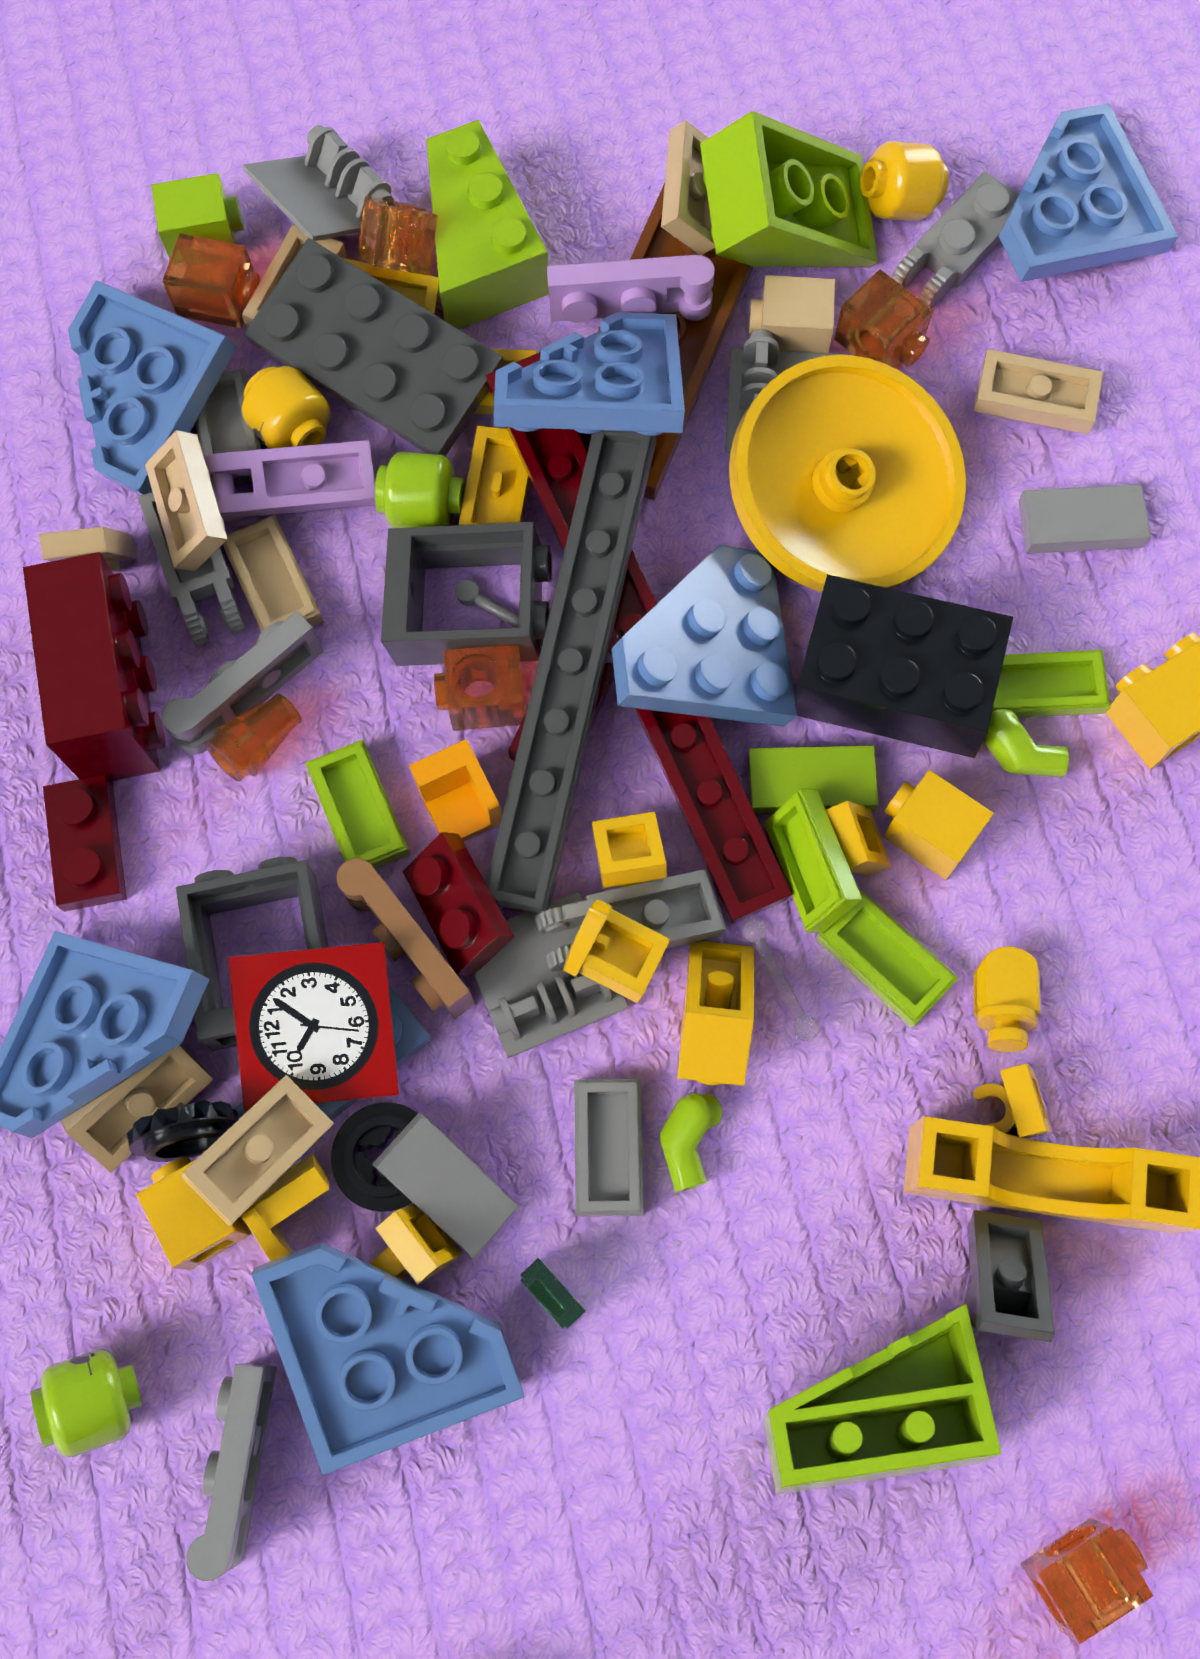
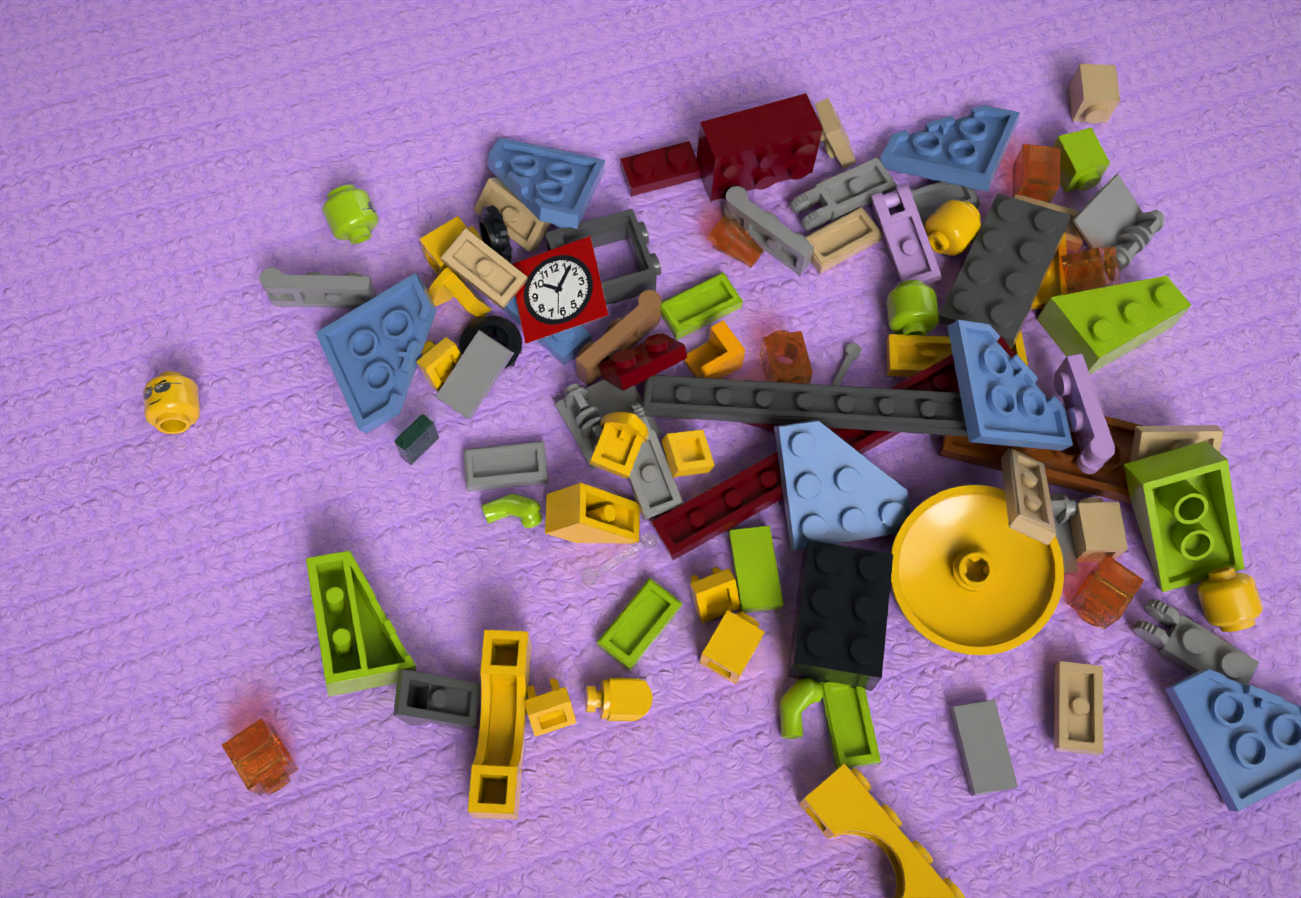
camera: 80 degrees right, 5 degrees down
(80, 175) = (1094, 93): none -> tan brick
(185, 501) = (884, 174): tan plate -> none
(475, 545) = (858, 309): dark grey window -> none
(768, 376) = (1027, 496): none -> tan tile
(812, 861) = (695, 564): lime tile -> none

